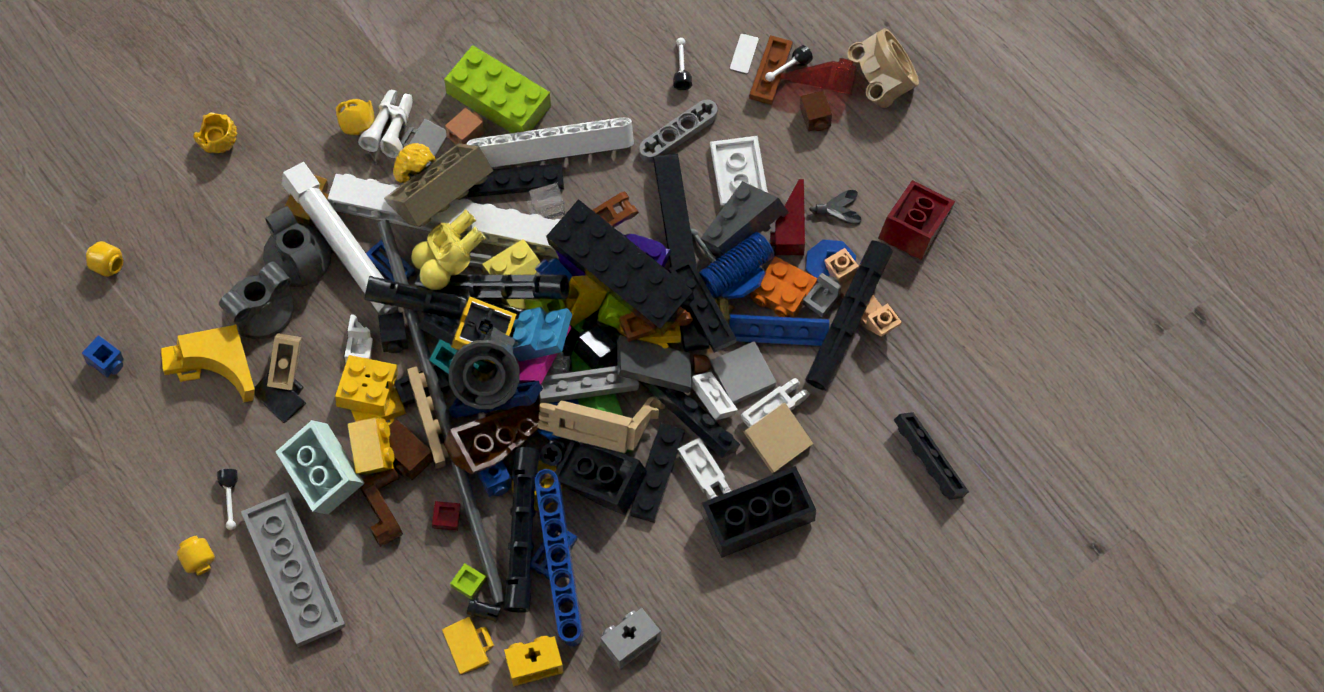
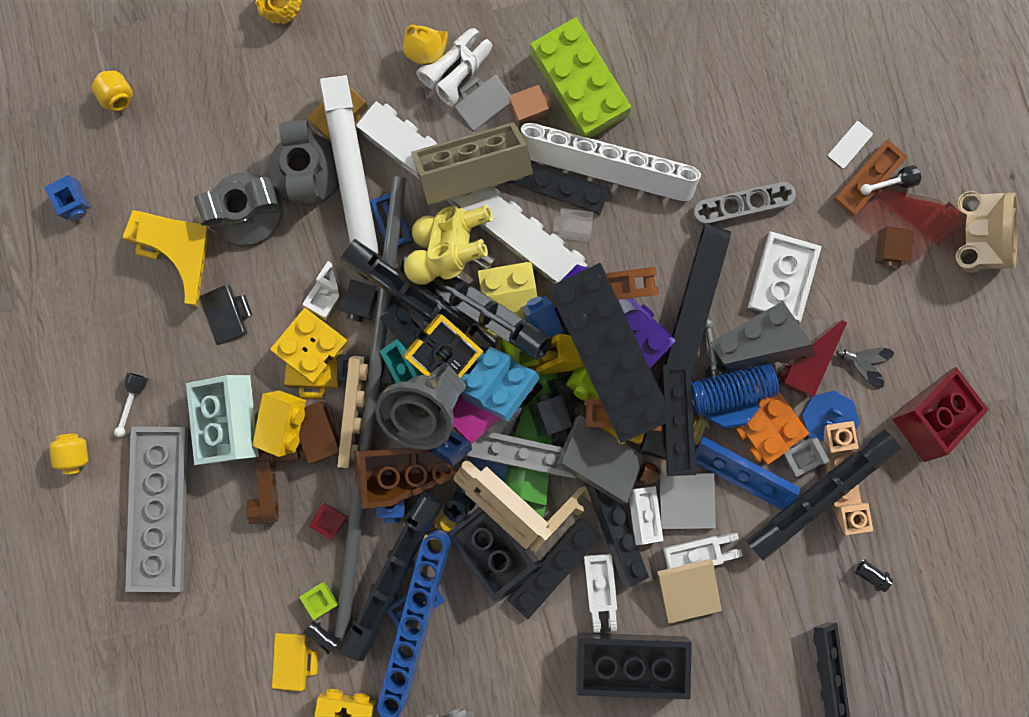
camera: 25 degrees right, 20 degrees up
(284, 361) = (240, 283): tan slope -> none
(411, 160) = (458, 122): yellow hair -> none
(682, 79) = (775, 147): black hinge -> none
(925, 363) = (881, 580): none -> black pin

